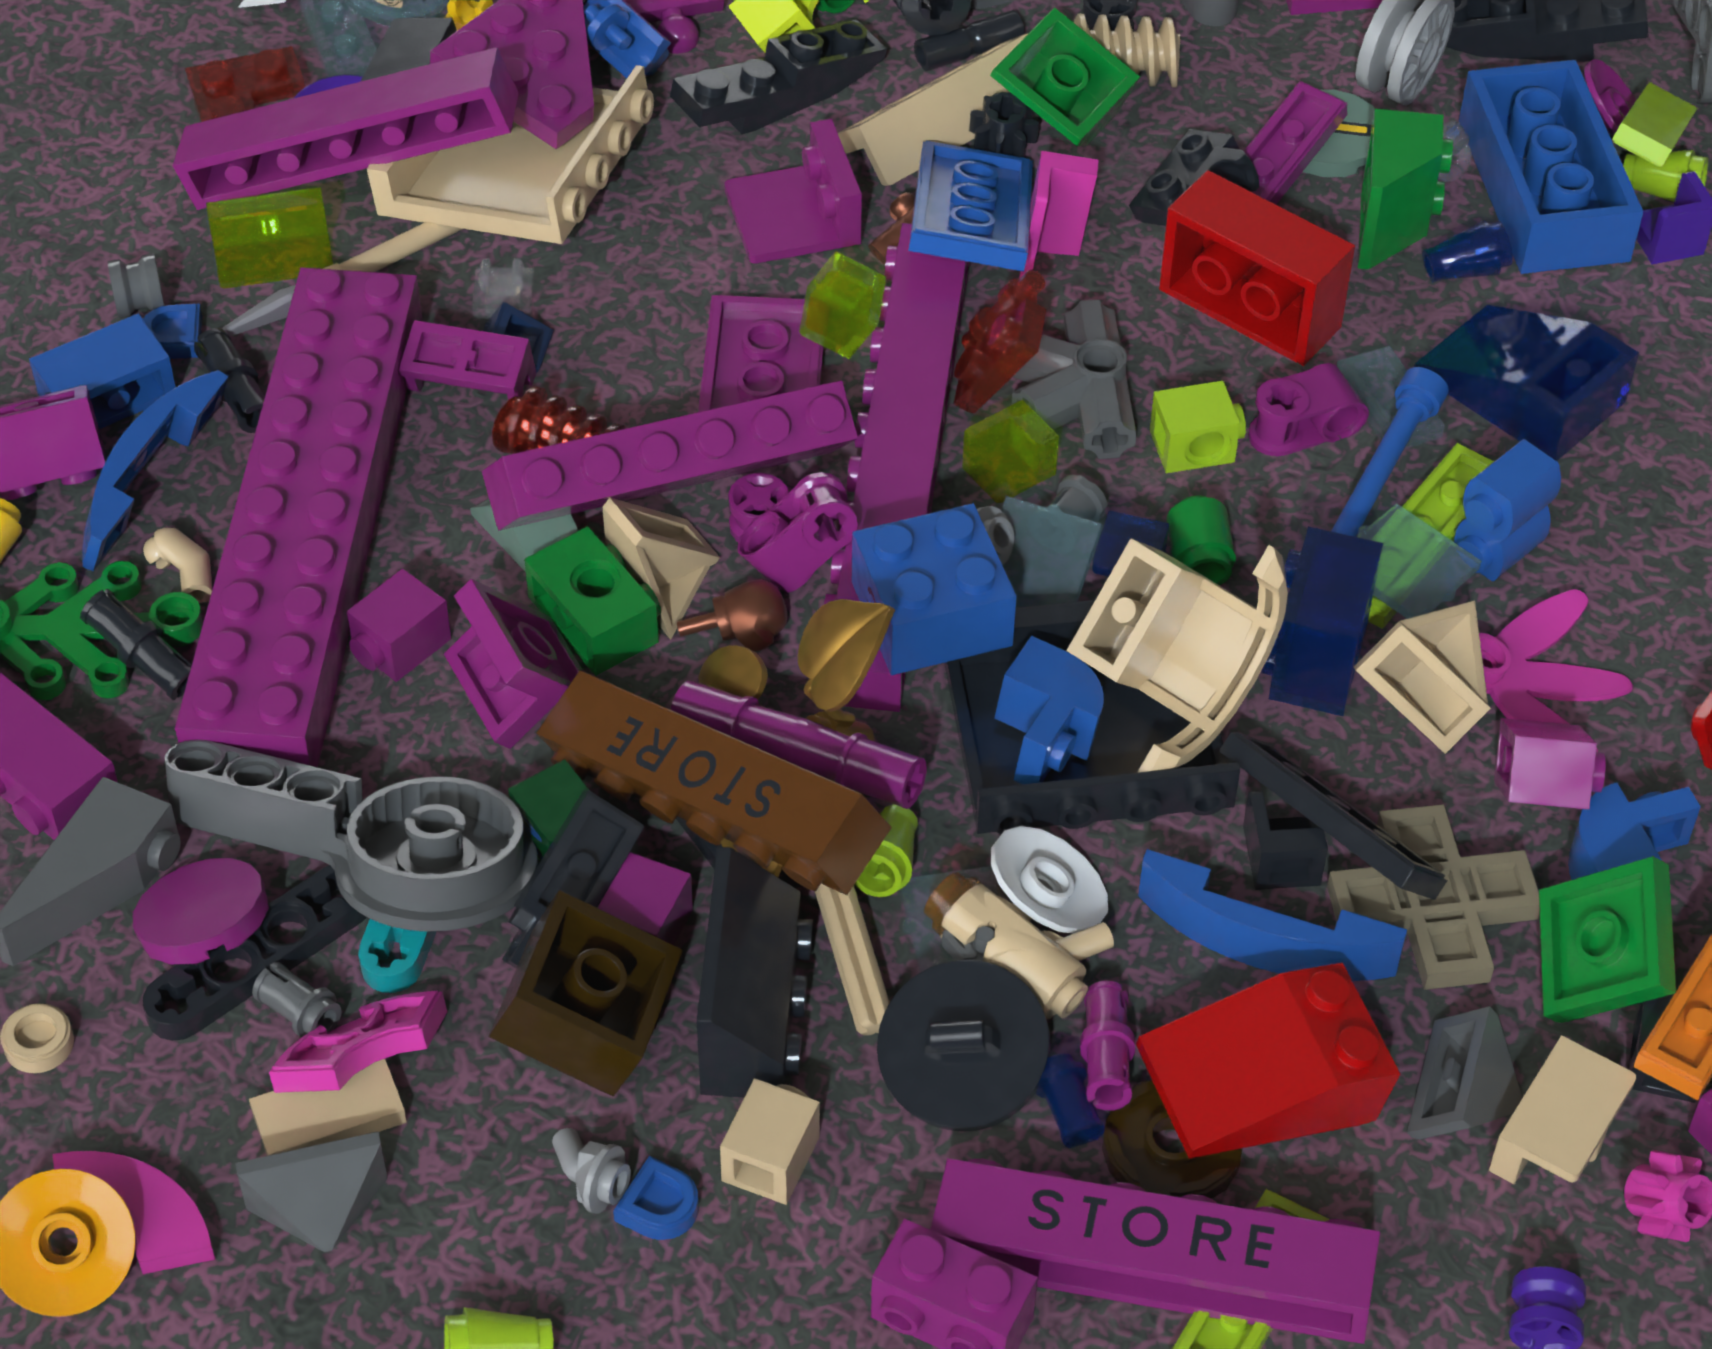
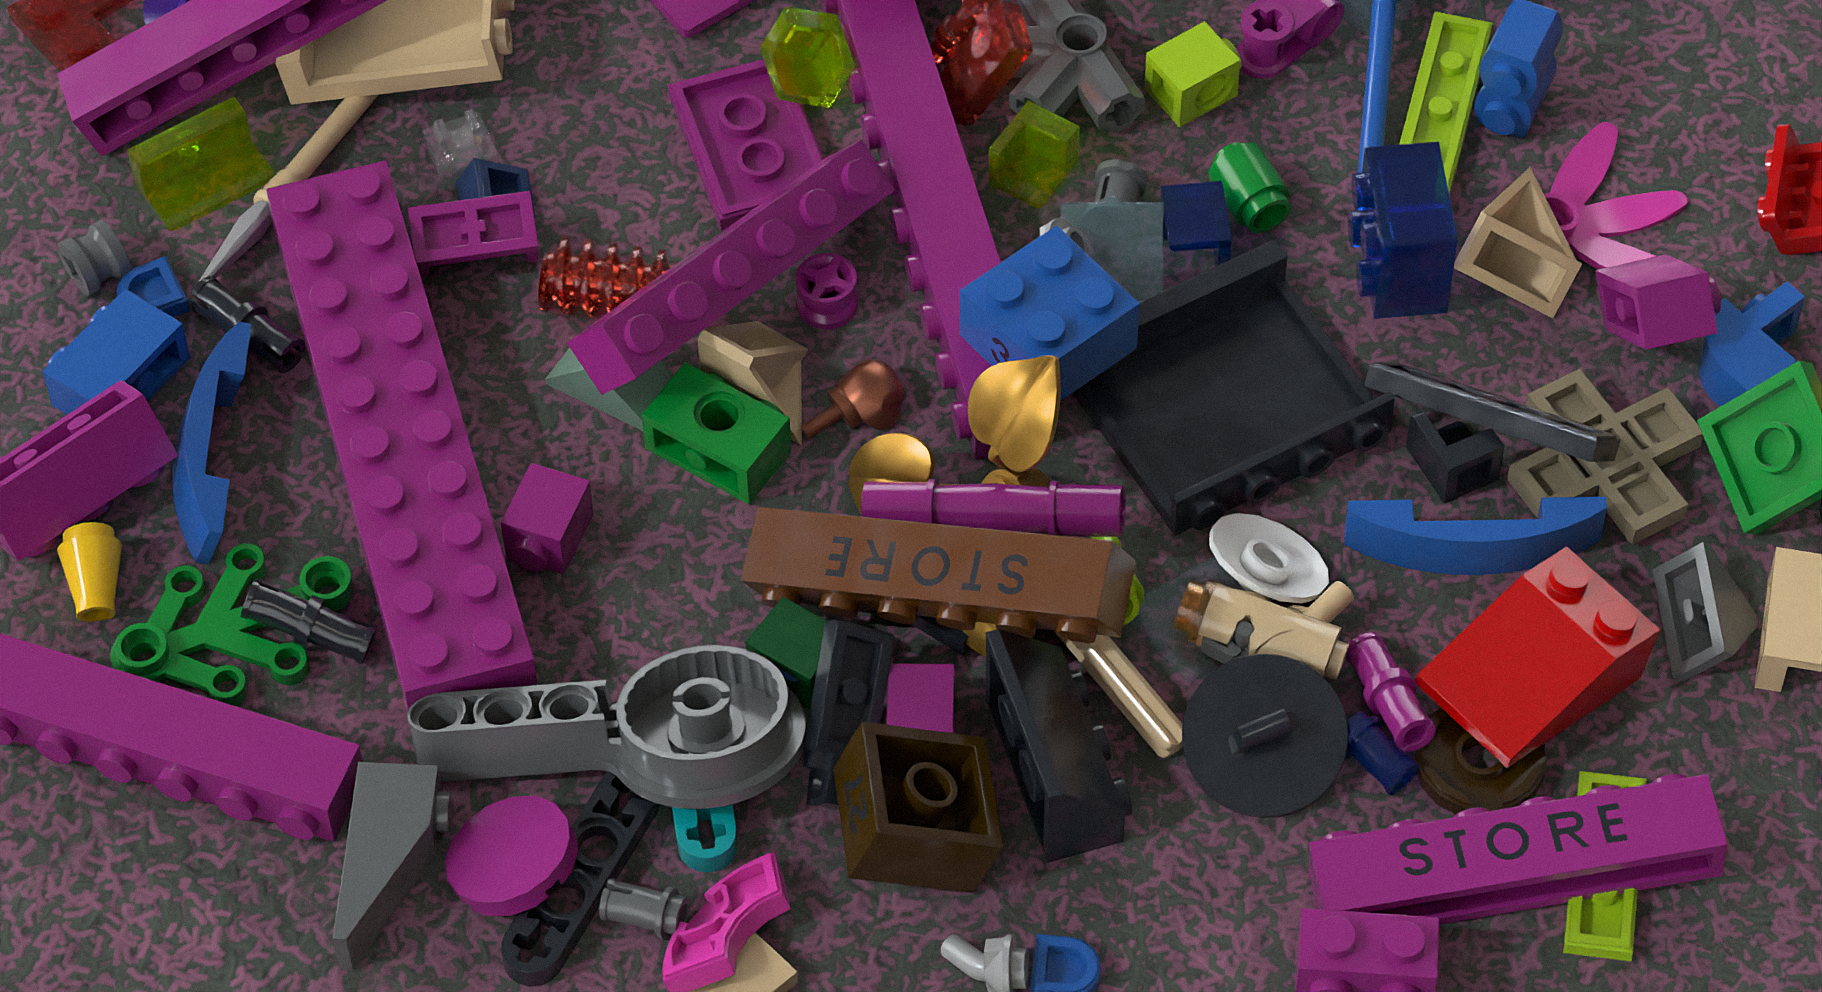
camera: 20 degrees left, 5 degrees up
(175, 548) = (299, 518): tan arm -> none
(509, 662) = (676, 523): magenta bracket -> none
(770, 1140) = (1139, 881): tan brick -> none
(797, 536) = (886, 305): magenta piece -> none
(1054, 703) = (1199, 389): blue brick -> none
(1182, 641) = (1298, 295): tan piece -> none
(1416, 563) = (1467, 141): clear light blue piece -> none

